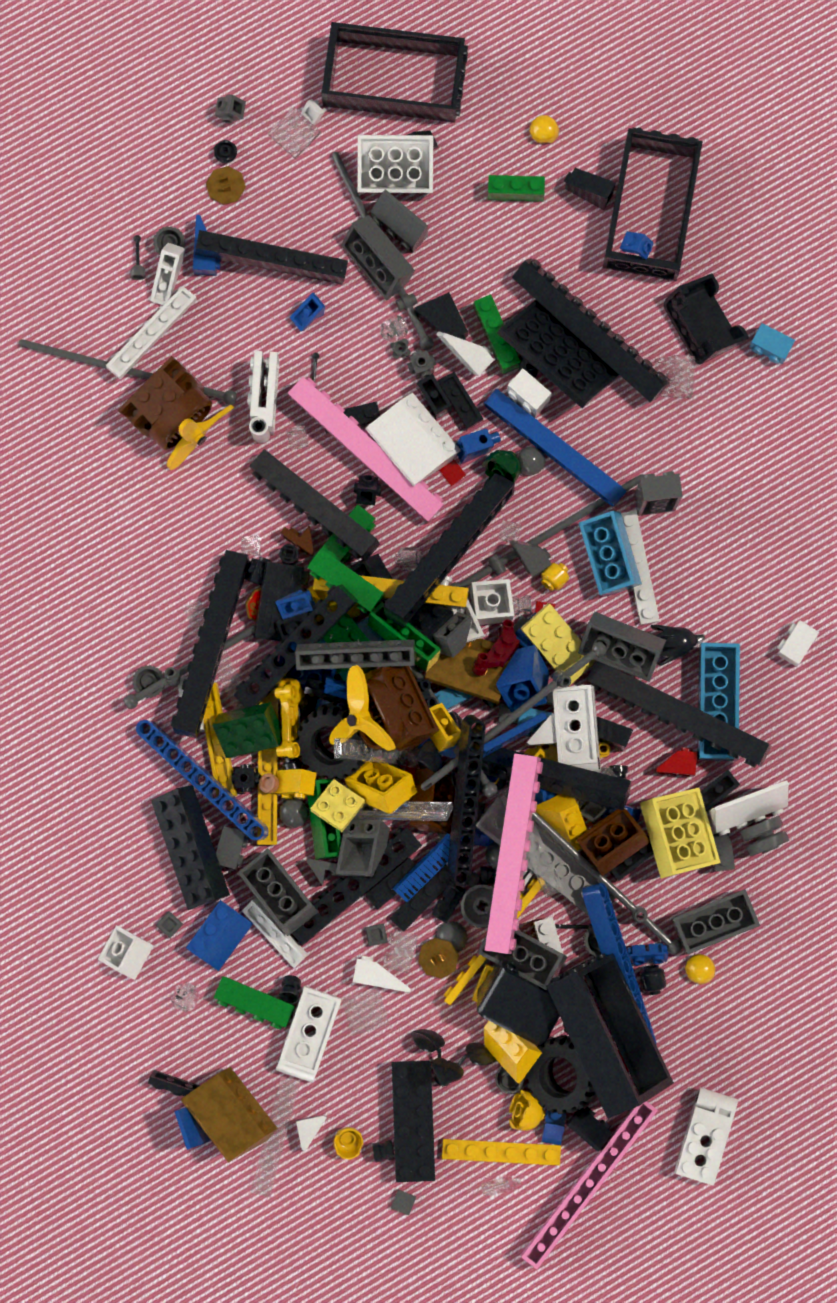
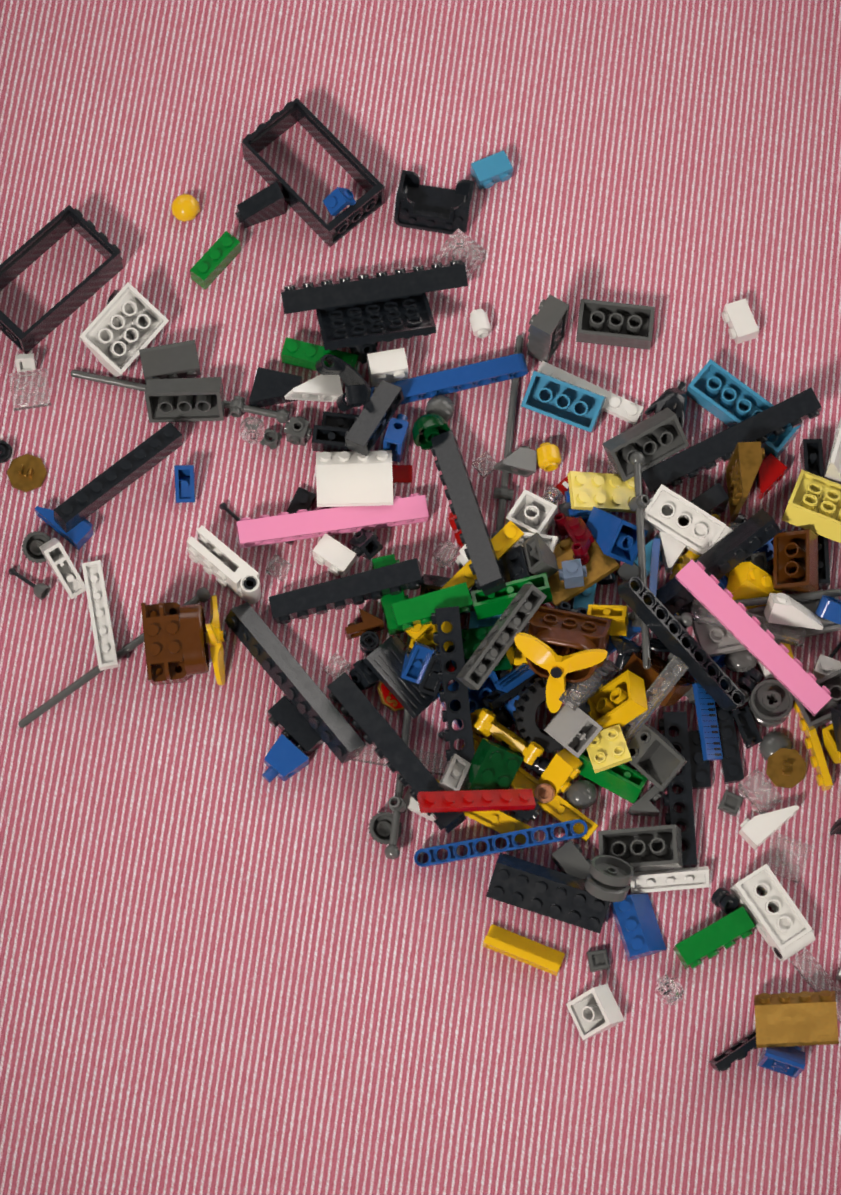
camera: 55 degrees left, 10 degrees down
(134, 860) = (523, 949): none -> yellow panel
(143, 562) = (284, 760): none -> blue torso
(177, 550) = (294, 726): none -> black brick
(209, 522) = (295, 682): none -> black brick
(213, 735) = (476, 800): none -> red plate
(223, 703) = (454, 773): none -> light grey plate
(230, 885) = (609, 878): none -> dark grey wheel
(327, 772) = (573, 729): none -> light grey slope
(340, 472) = (334, 555): none -> white brick
(459, 670) = (572, 573): none -> sand blue brick
(473, 415) = (374, 417): none -> black brick
(476, 384) = (356, 390): none -> black panel
(566, 868) = (787, 611): none -> white slope
(628, 436) = (480, 323): none -> white brick
(661, 740) = (741, 474): none -> pearl gold slope
(712, 544) = (615, 324): none -> dark grey brick

